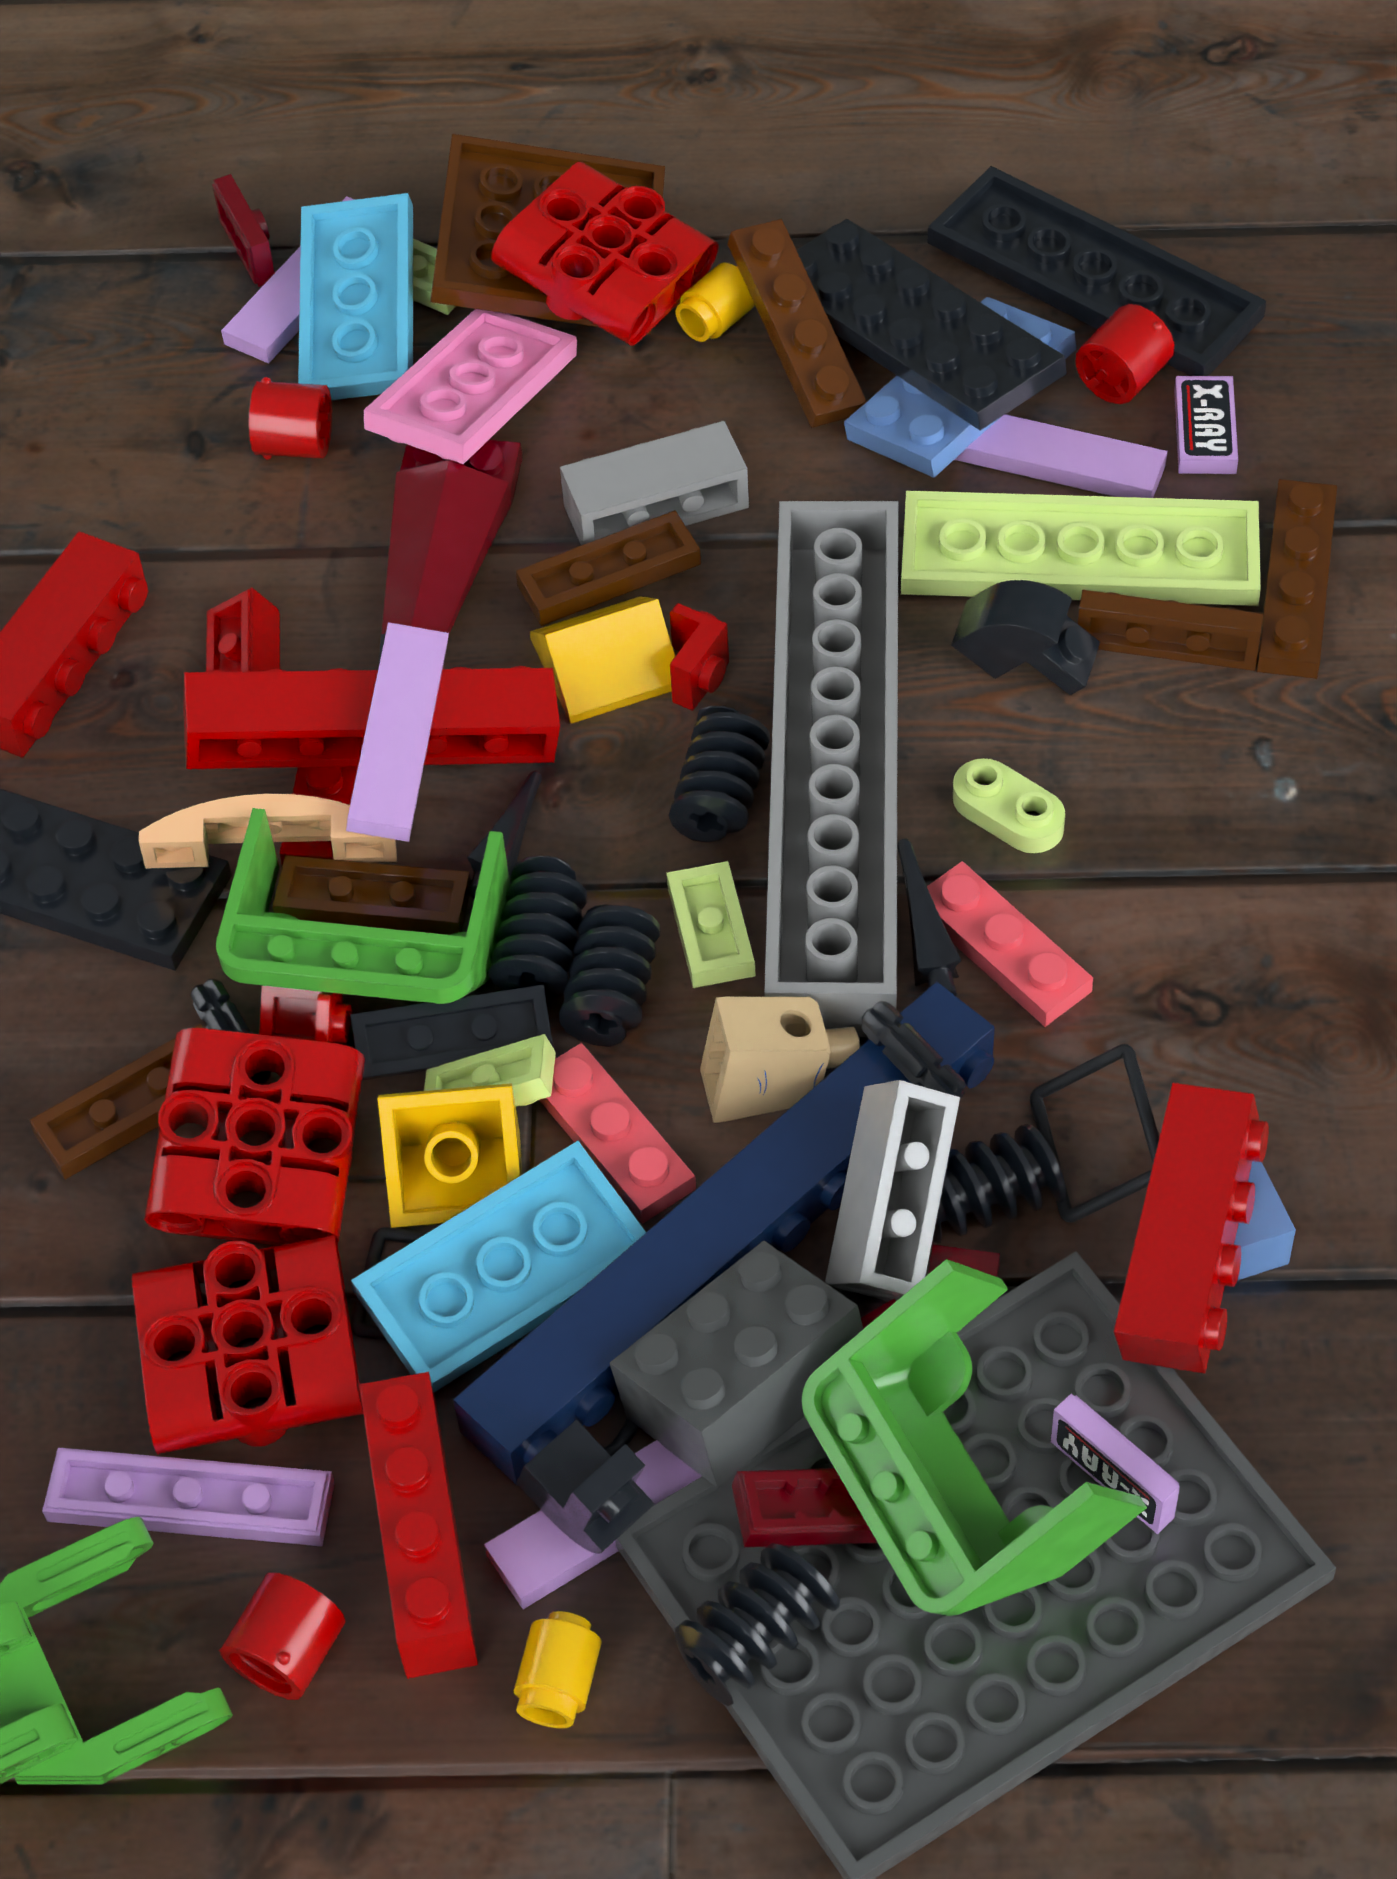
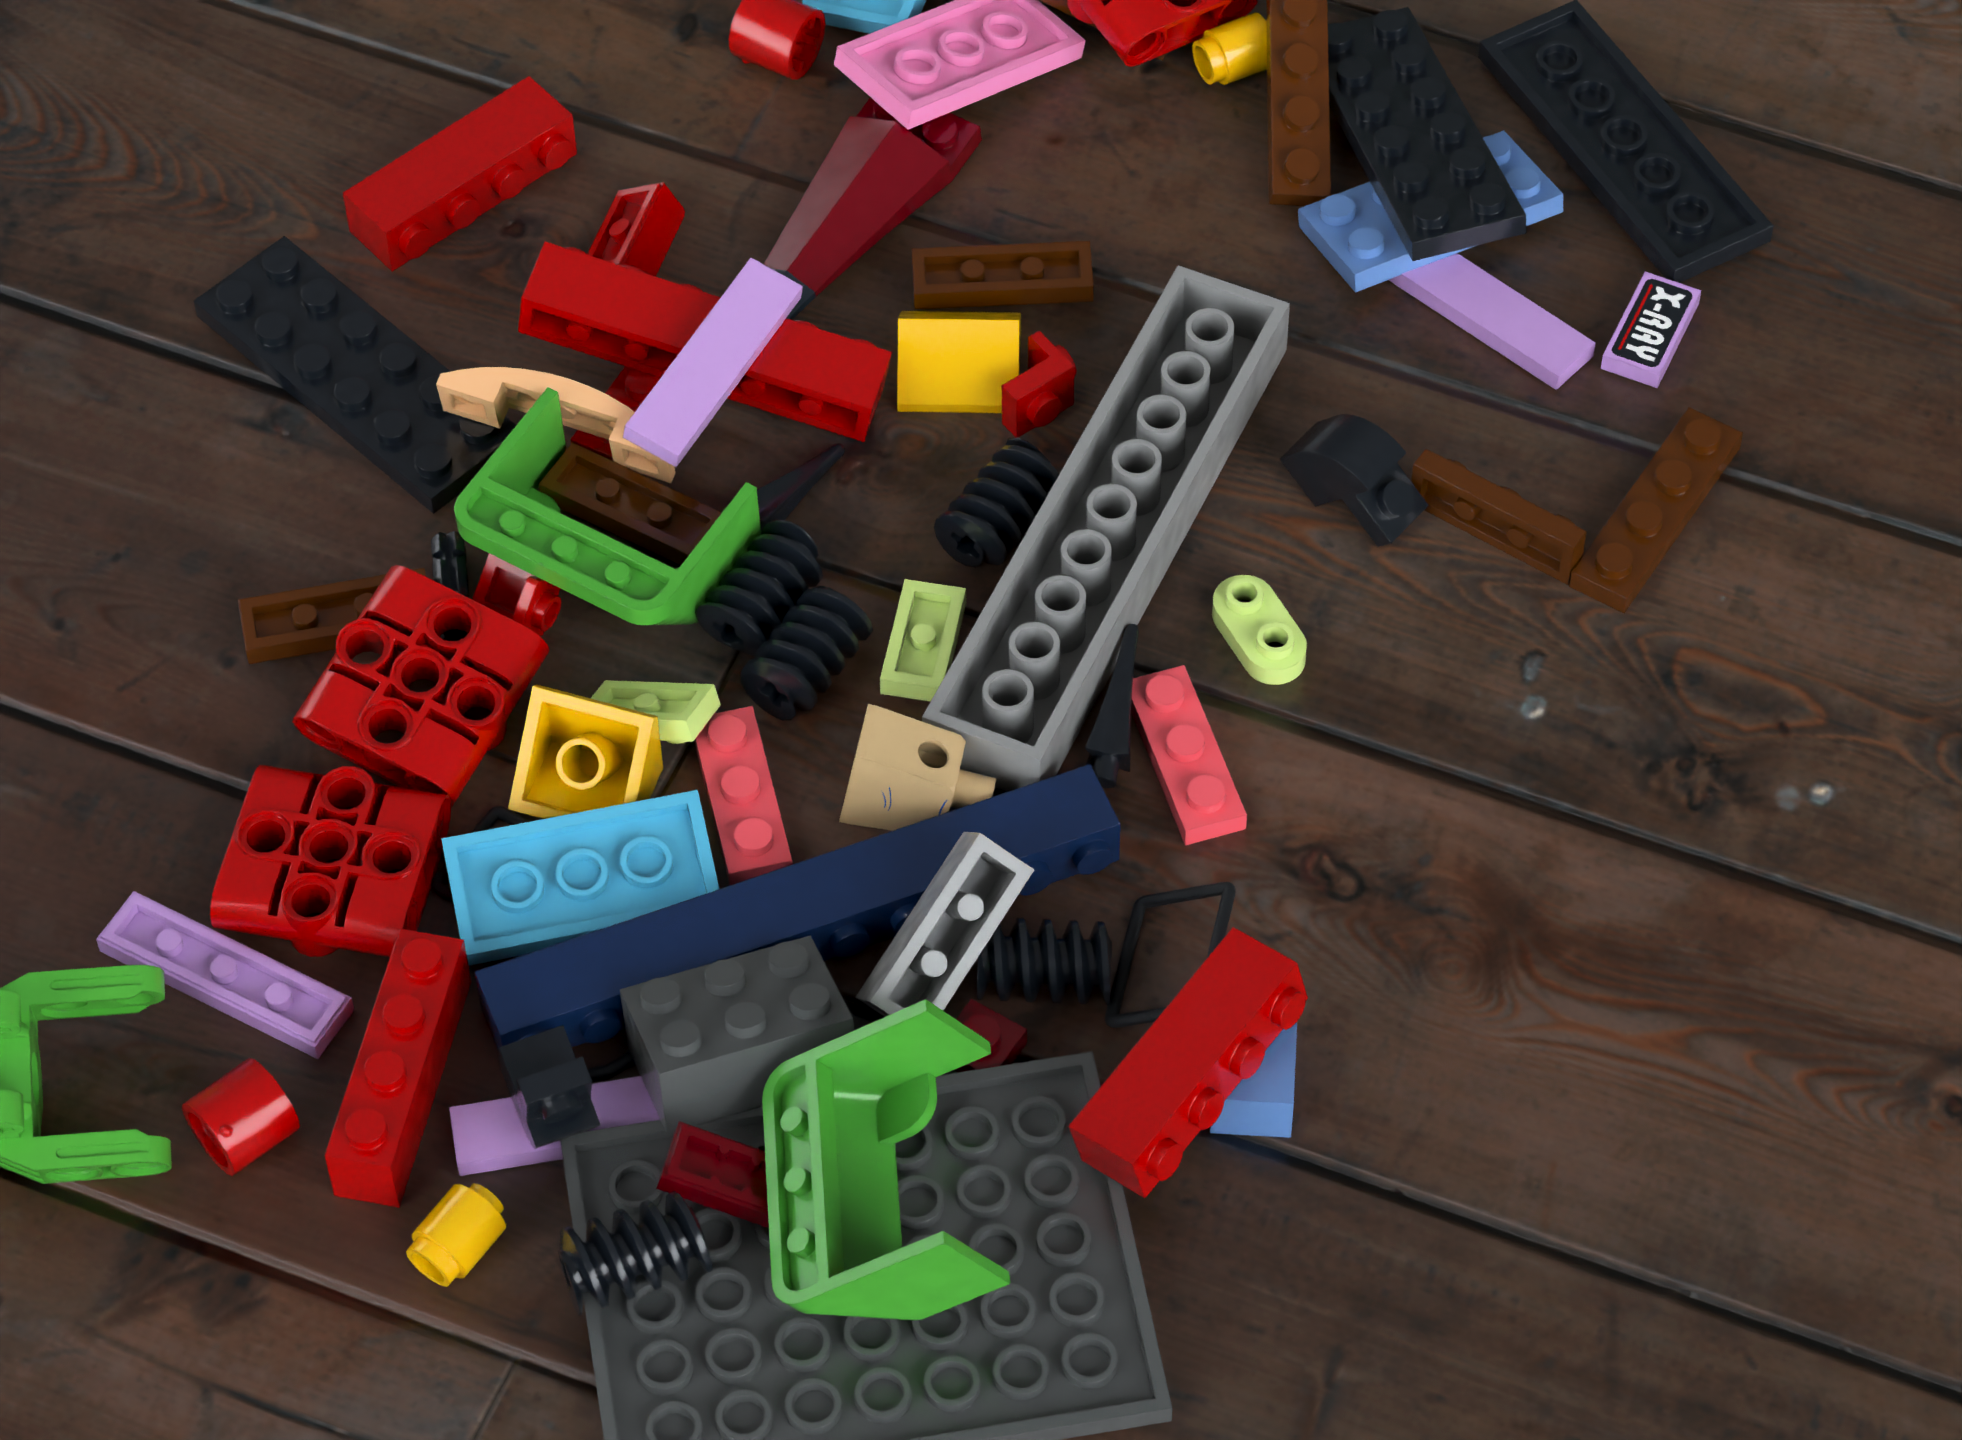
camera: 20 degrees right, 0 degrees up
(435, 1034) = (617, 650): black plate -> none
(686, 472) = (1115, 208): light grey brick -> none
(910, 1050) = (1027, 820): black axle -> none
(1078, 543) = (1461, 408): yellowish green plate -> none
(1114, 1460) = (1016, 1241): lavender tile -> none
(1124, 354) = (1602, 232): red piece -> none

